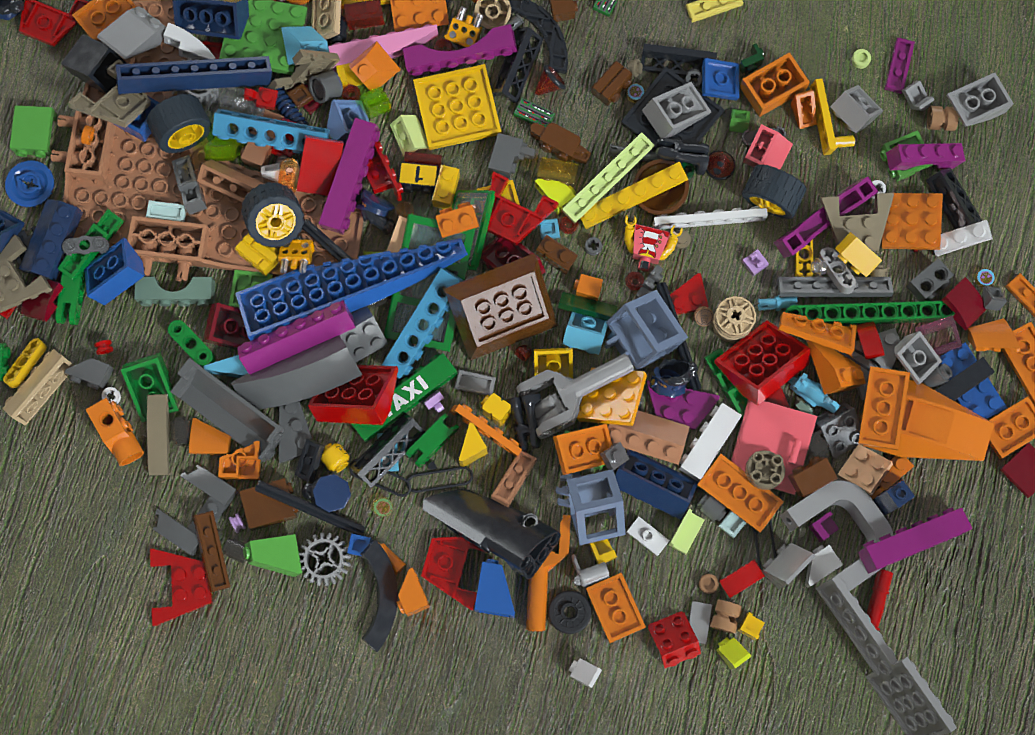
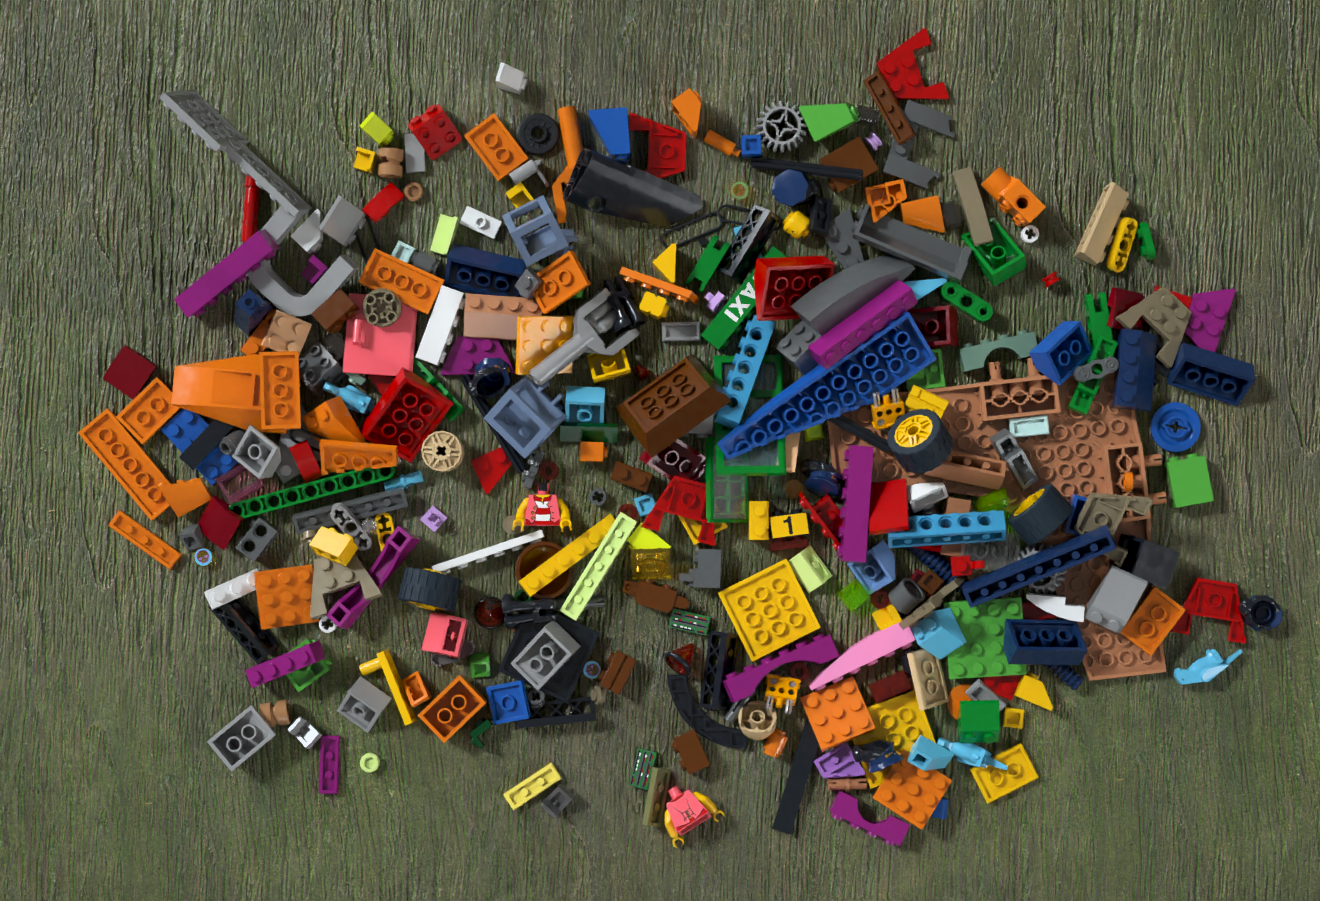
camera: 165 degrees right, 10 degrees up
(92, 372) = (1054, 251): dark grey slope -> none
(288, 178) = (917, 489): clear orange plate -> none
(374, 67) = (863, 628): orange slope -> none
(386, 595) = (714, 107): black tile -> none
(458, 220) = (736, 480): orange bracket -> none
(514, 478) = (620, 245): nougat tile -> none
(703, 316) = (473, 450): medium nougat tile -> none

